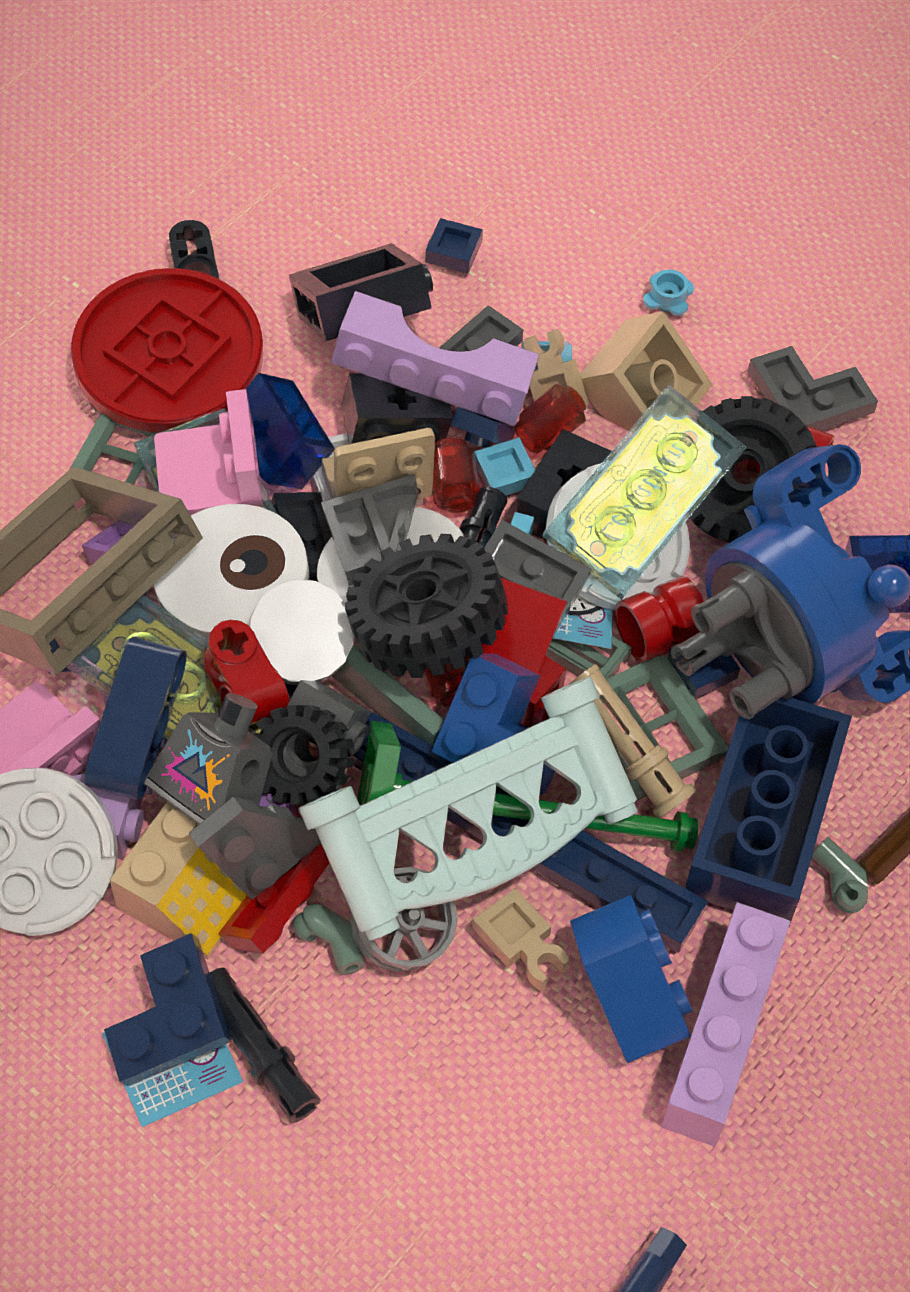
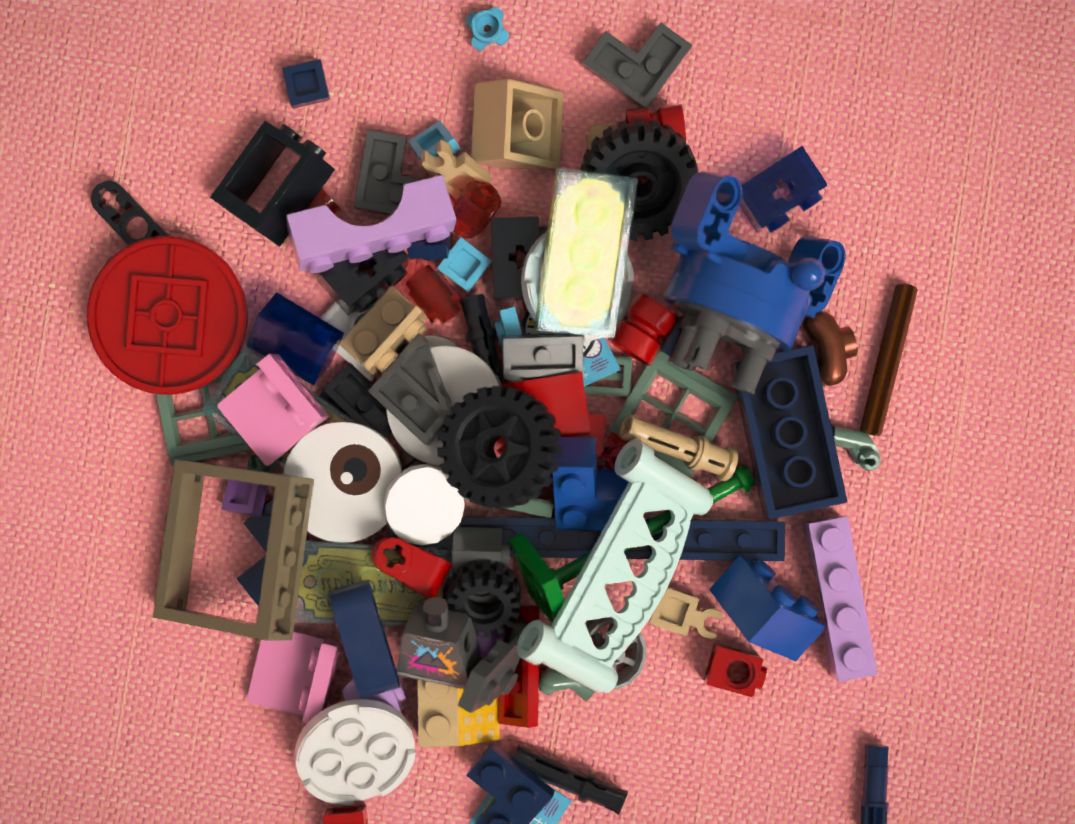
camera: 25 degrees left, 30 degrees up
(543, 1010) = (722, 657): none -> red brick
(871, 752) = (831, 346): none -> copper piece

